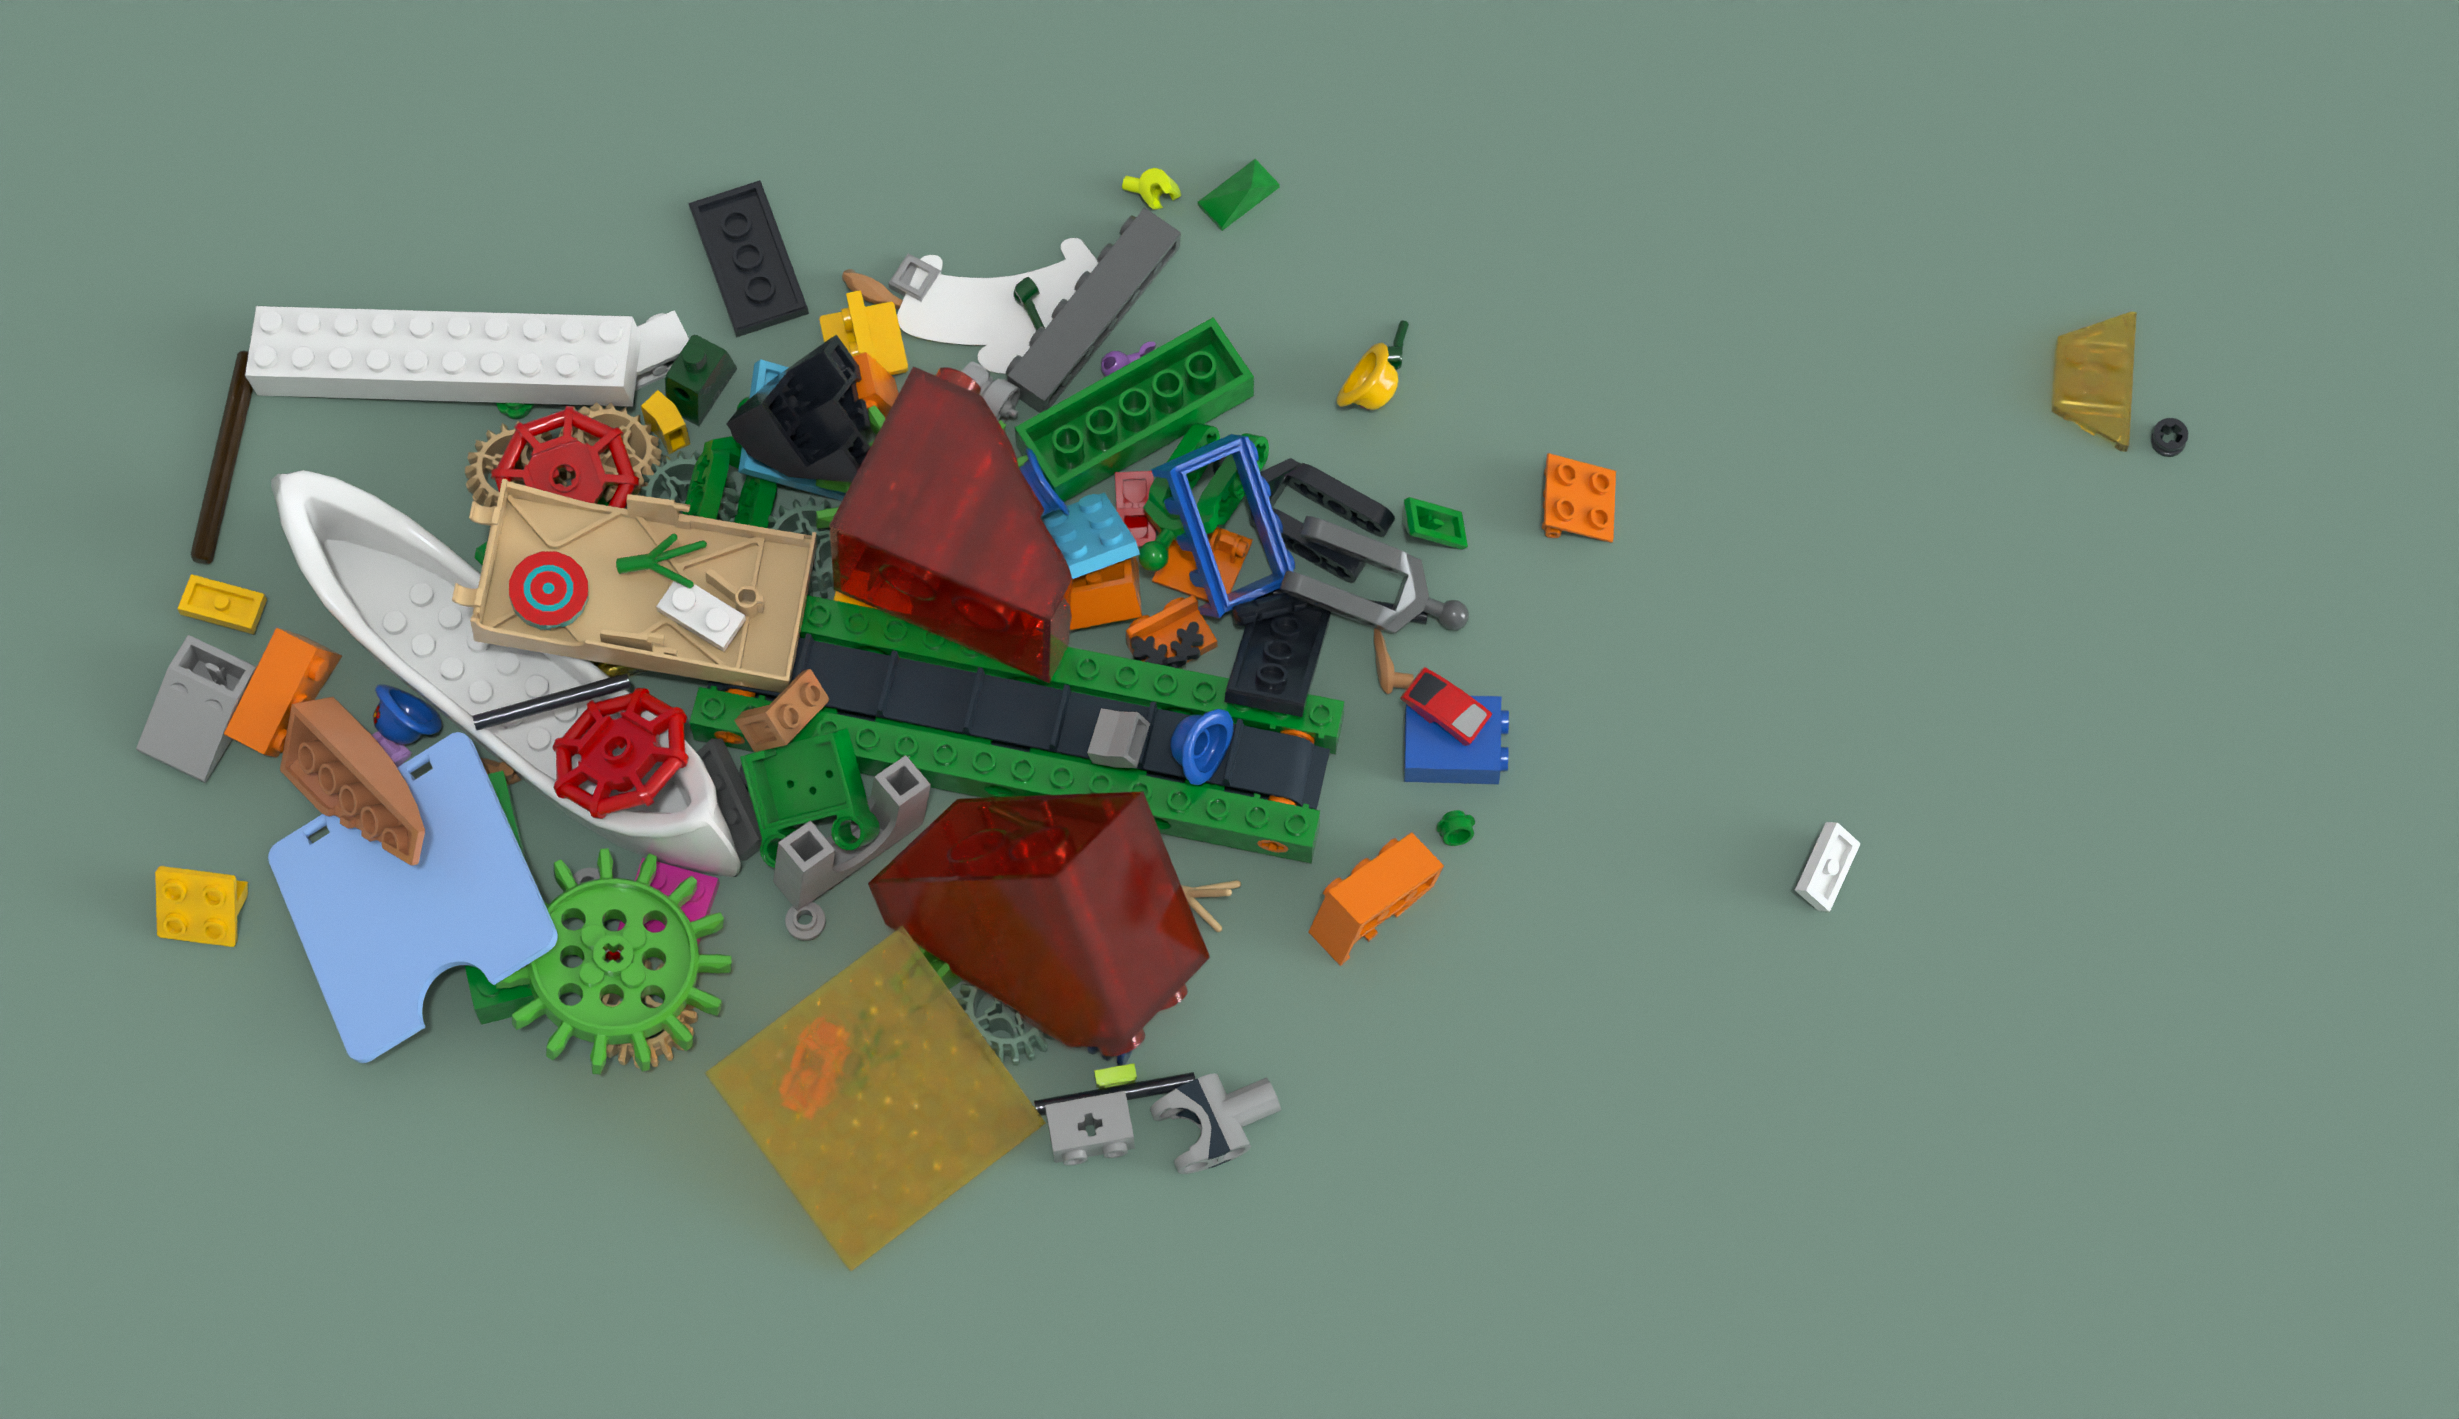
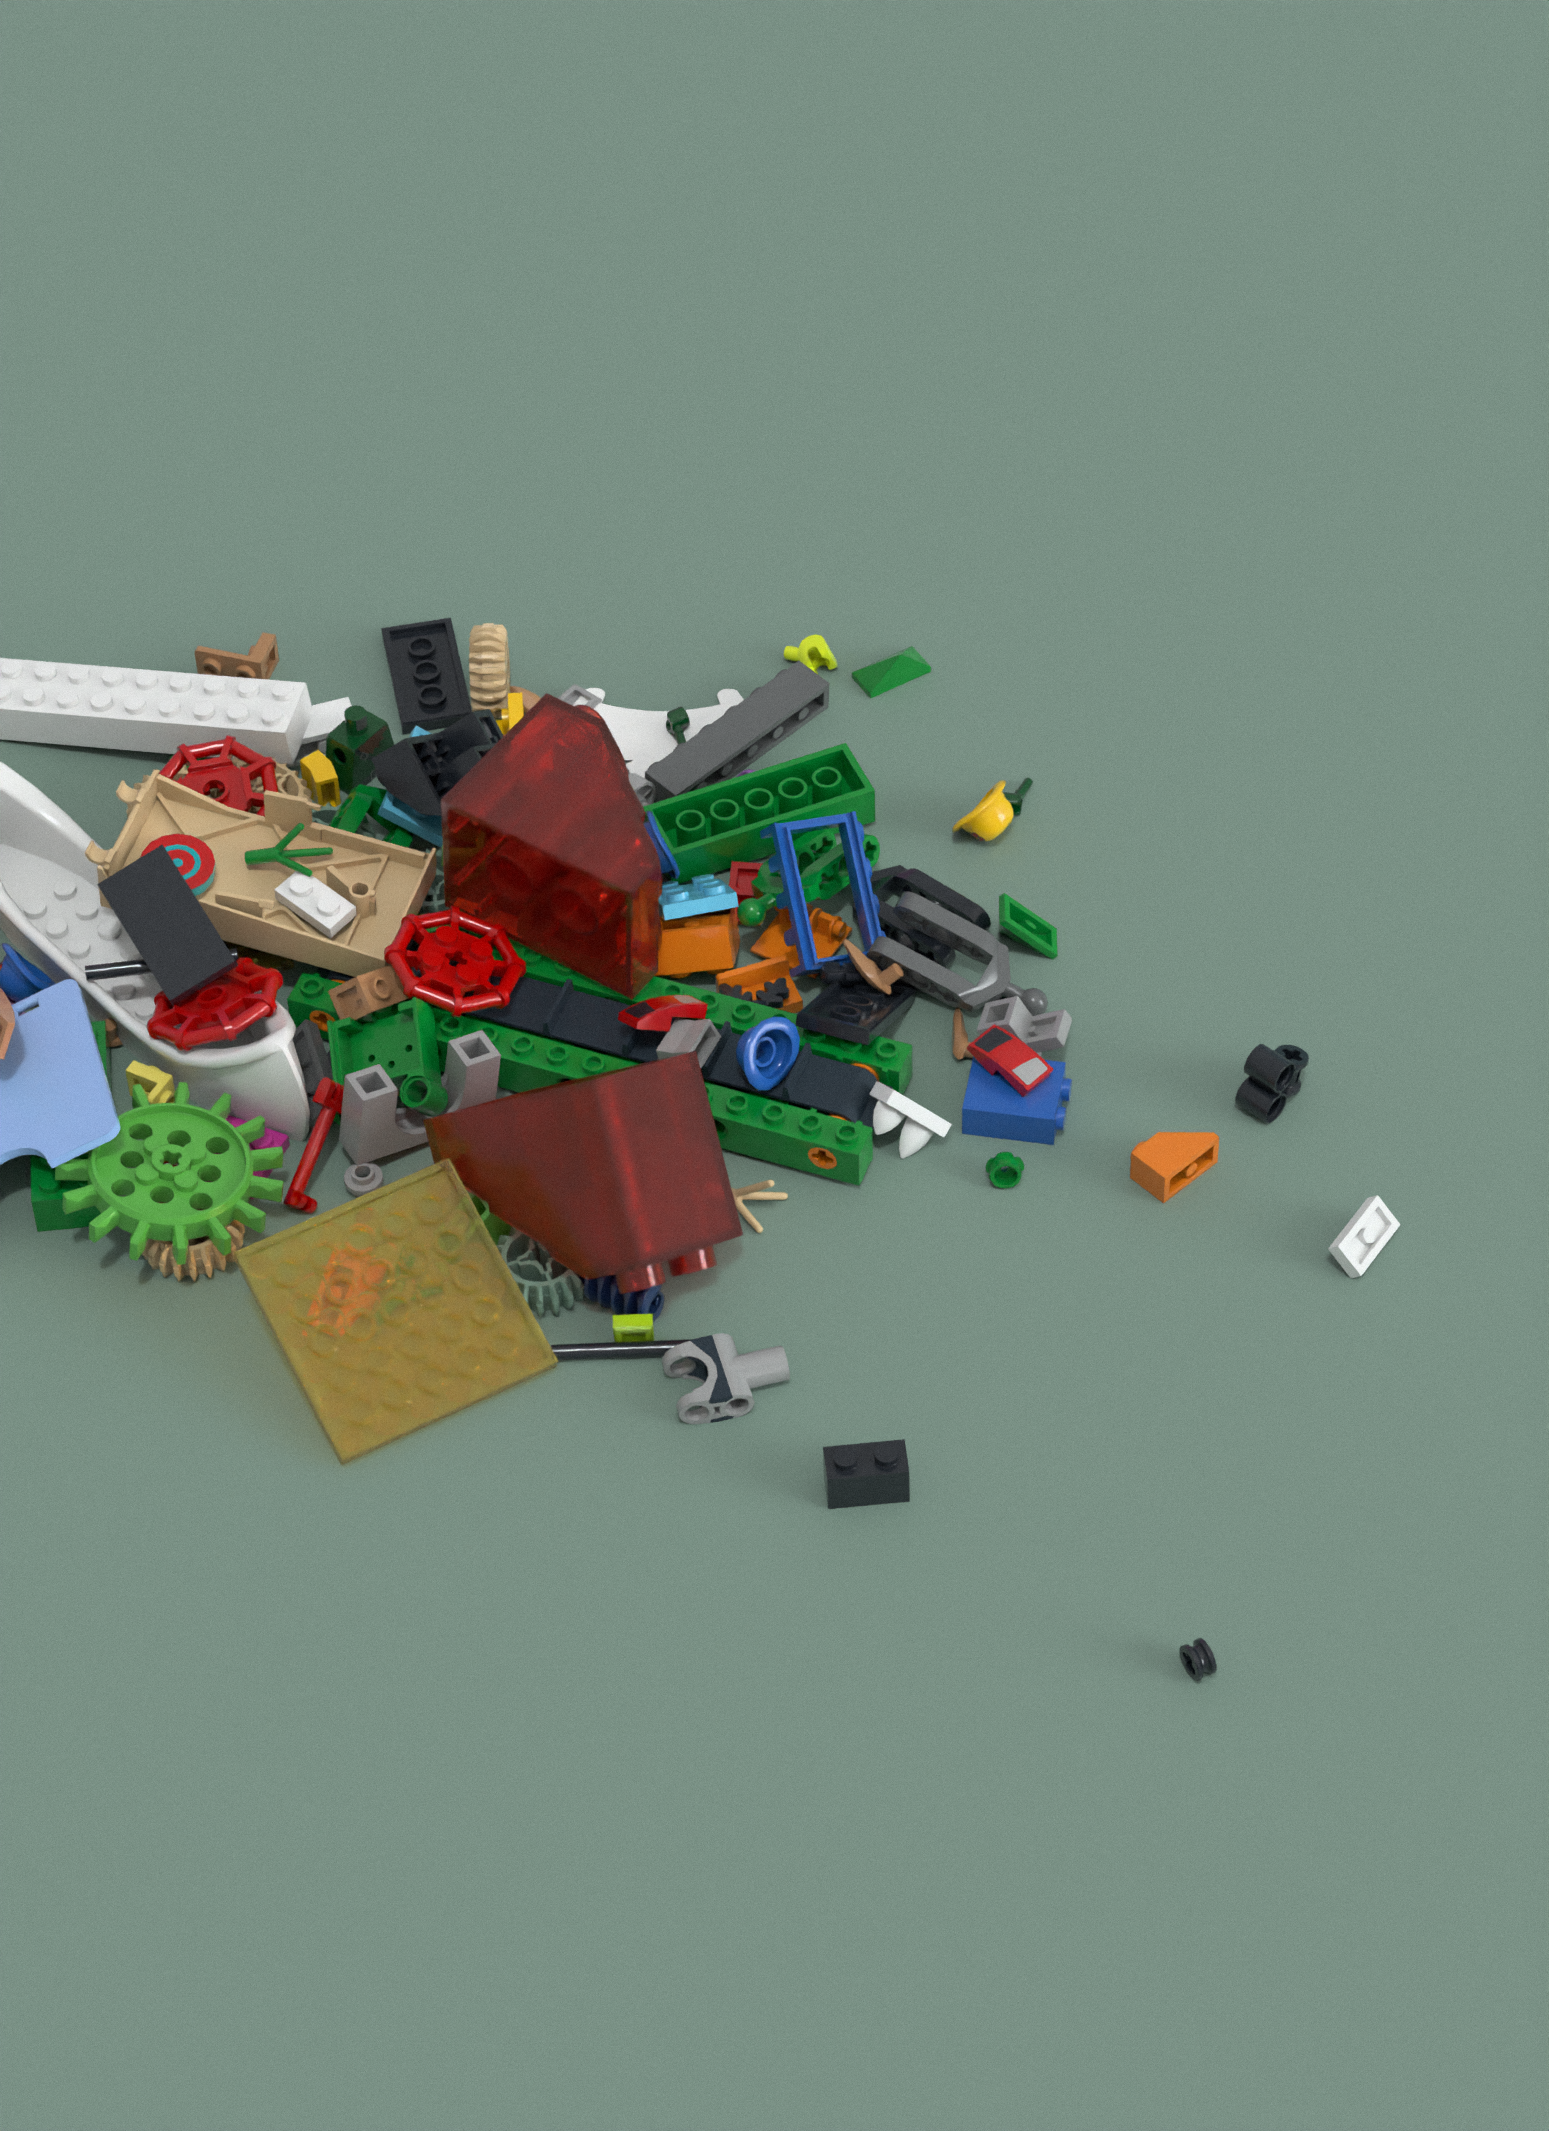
camera: 10 degrees right, 20 degrees down
(556, 280) = (257, 664): none -> medium nougat bracket
(556, 675) = (167, 925): none -> black tile
(566, 834) = (156, 1083): none -> light yellow bracket
(761, 850) = (330, 1097): none -> red hinge
(819, 259) = (489, 668): none -> tan gear
(866, 649) = (446, 984): none -> red plate
(1080, 706) = (658, 1012): none -> red slope
(1110, 1120) = (600, 1368): light grey brick -> none
(1285, 608) = (871, 972): none -> medium nougat bar
(1358, 779) = (918, 1126): none -> white tile
(1373, 894) = (910, 1208): orange wedge -> none
(1377, 1220) = (866, 1474): none -> black brick
(1452, 657) = (1039, 1032): none -> light grey brick
(1578, 499) = (1168, 925): orange hinge -> none
(1622, 798) = (1172, 1161): none -> orange slope
(1712, 687) = (1271, 1080): none -> black piece
(1732, 1391) = (1198, 1659): none -> black bush

